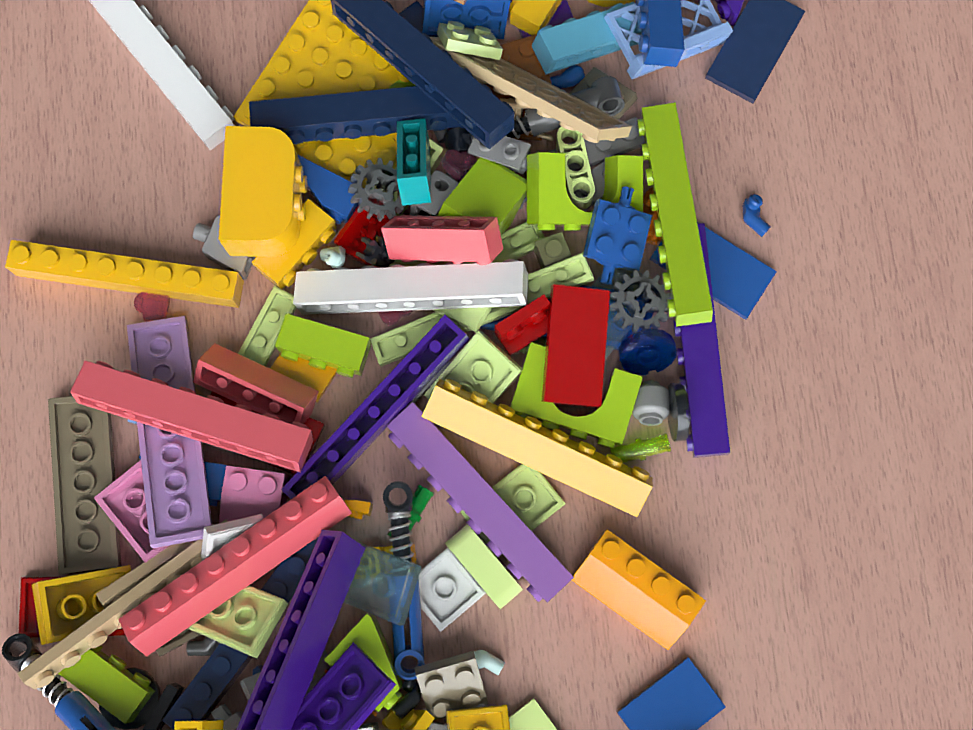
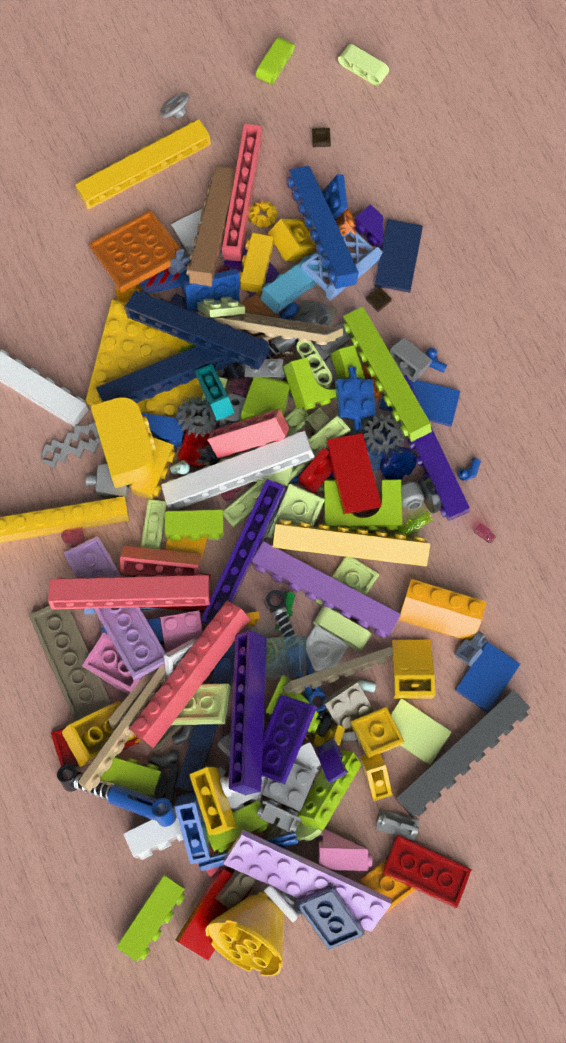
camera: 20 degrees left, 5 degrees down
(167, 674) = (166, 760): none -> dark grey arm
(186, 174) = (66, 448): none -> light grey piece
(440, 635) = (332, 674): none -> dark tan plate
(565, 661) = (413, 669): none -> yellow slope
(658, 662) = (470, 651): none -> sand blue plate
(704, 99) = (378, 299): none -> dark brown tile
(717, 202) = (410, 359): none -> light grey brick
(739, 494) = (484, 533): none -> clear pink tile
(752, 396) = (471, 472): none -> blue arm

